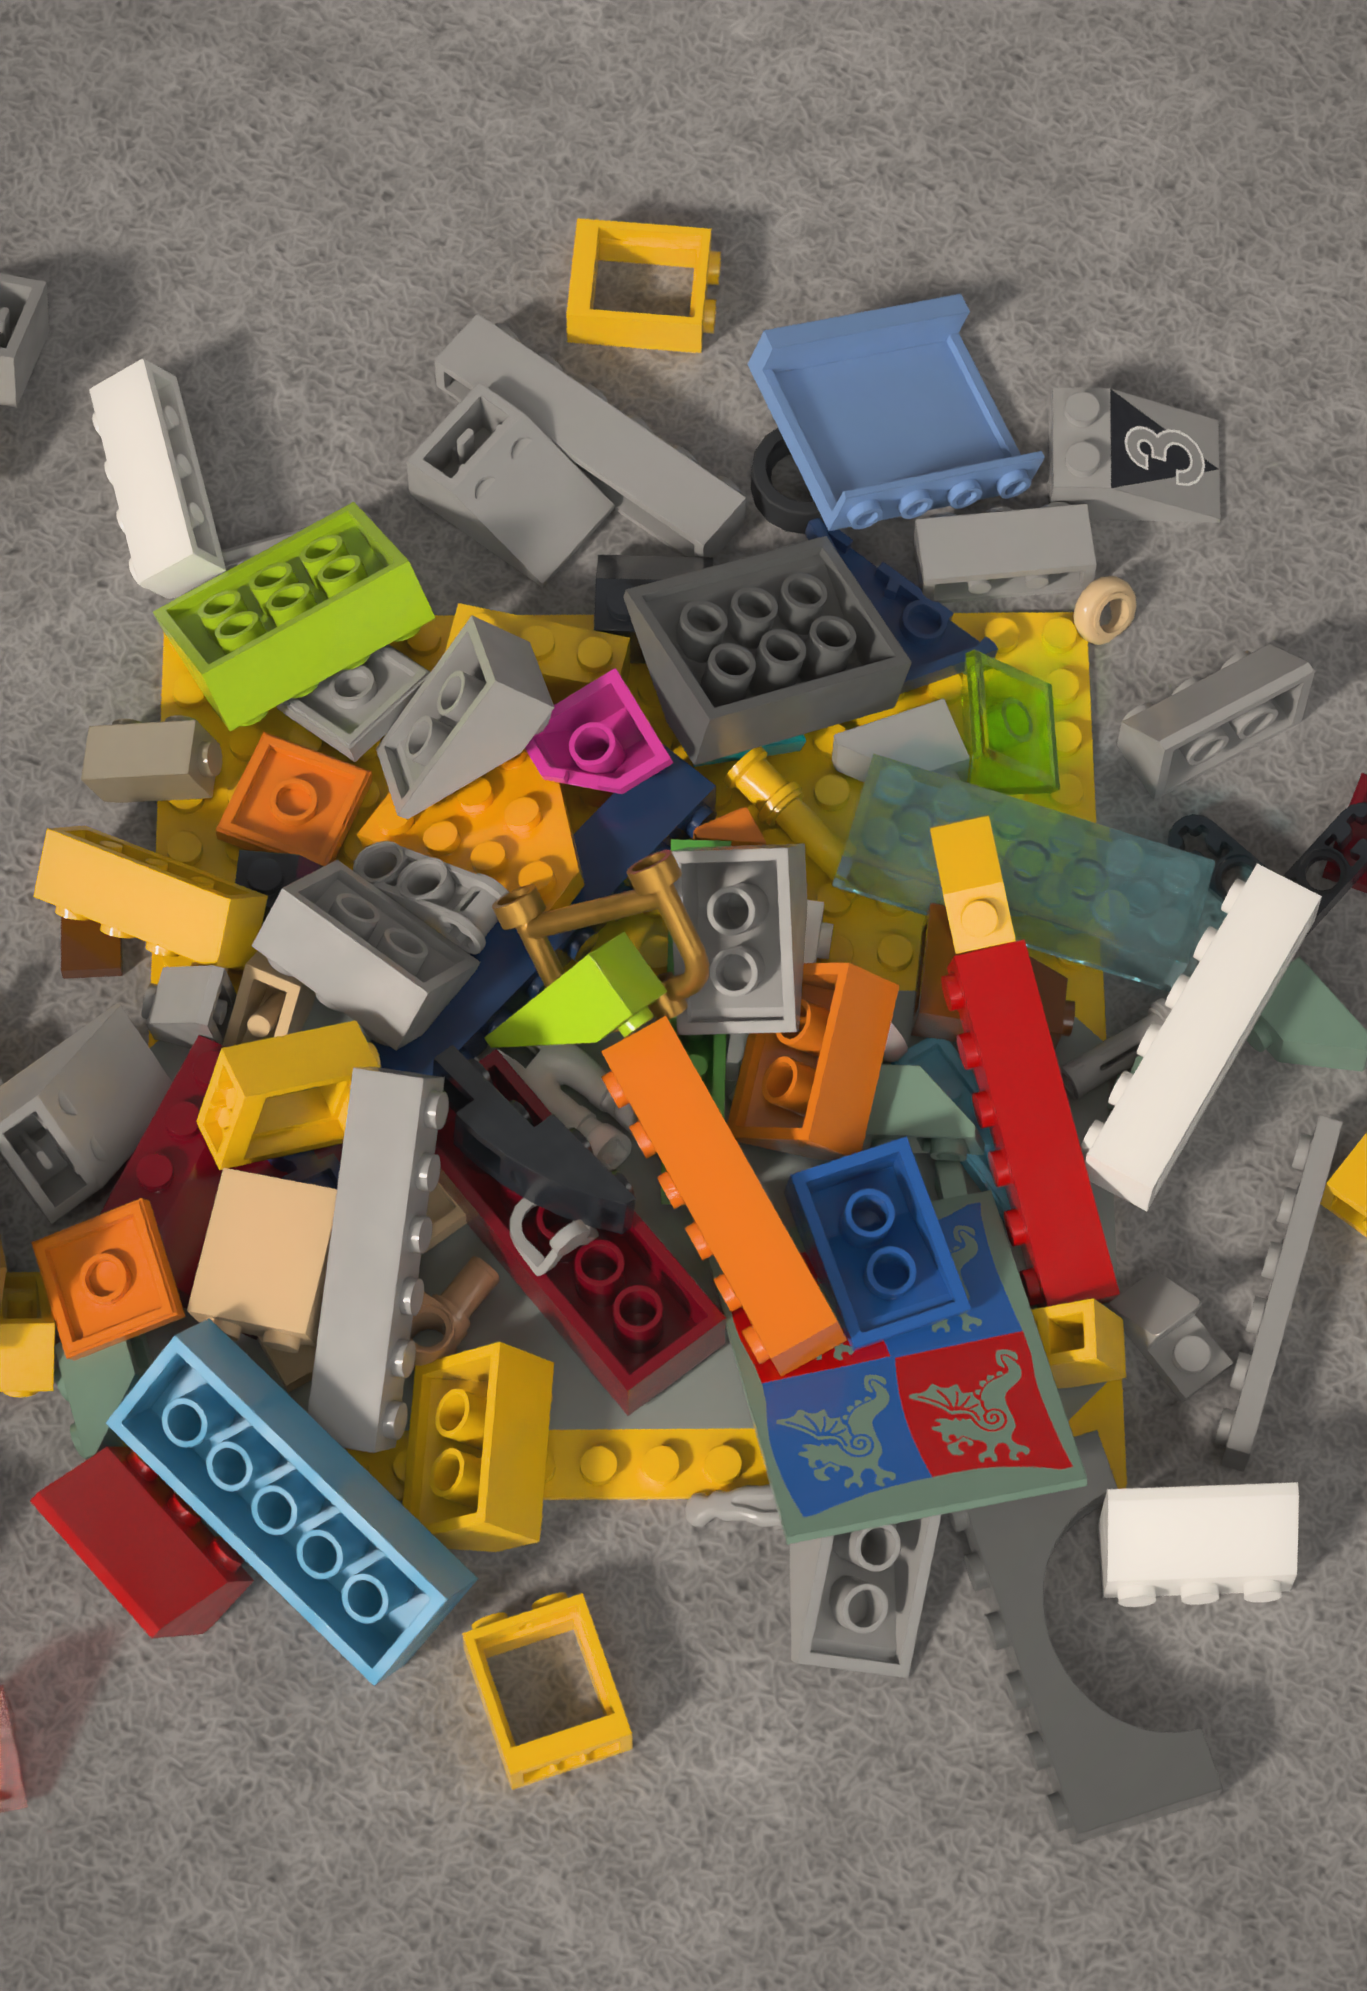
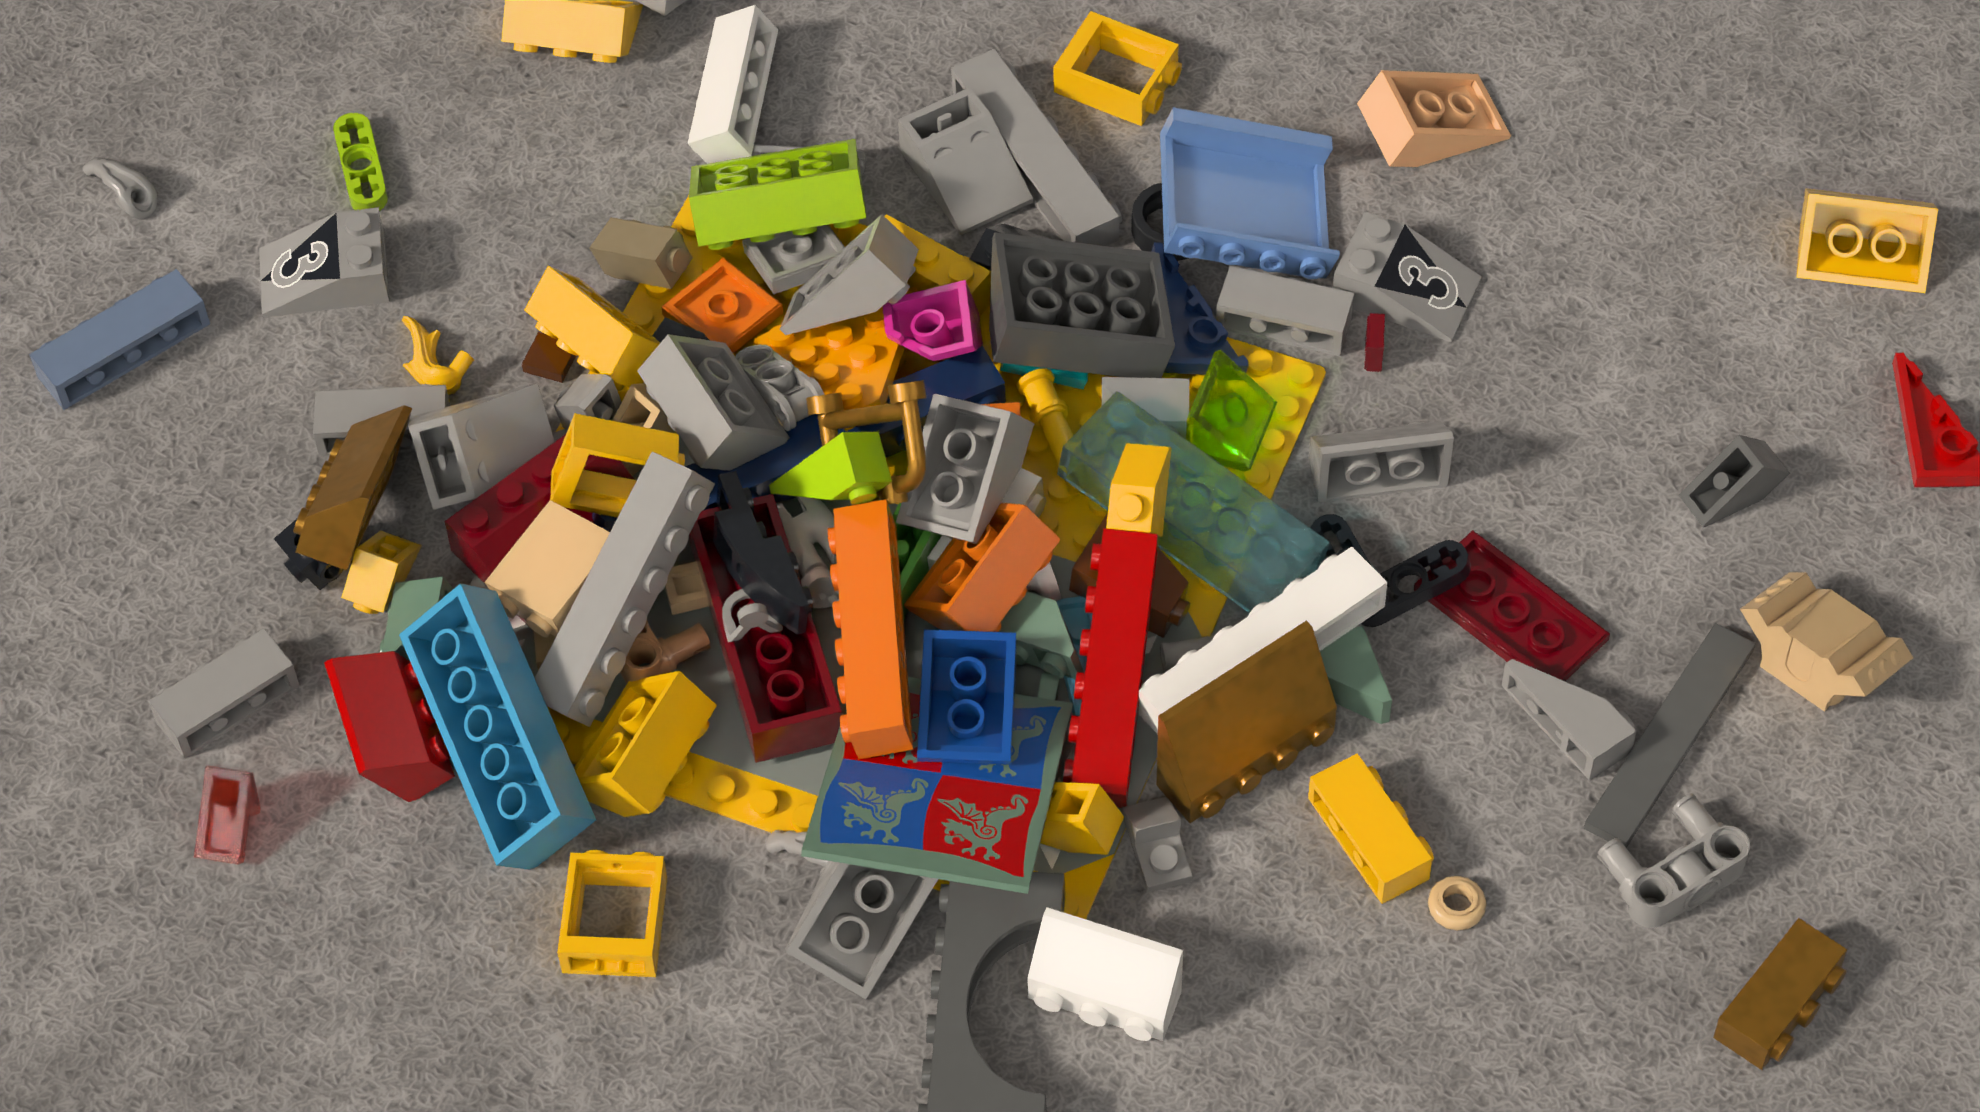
camera: 25 degrees right, 10 degrees down
(108, 1279) = (444, 547): orange plate -> none
(1063, 221) = (1430, 116): none -> light nougat slope
(1092, 602) = (1329, 358): tan piece -> none
(1134, 558) = (1374, 342): none -> dark red tile
(1226, 1151) = (1245, 725): none -> pearl gold slope
(1270, 1315) = (1235, 853): light grey plate -> none

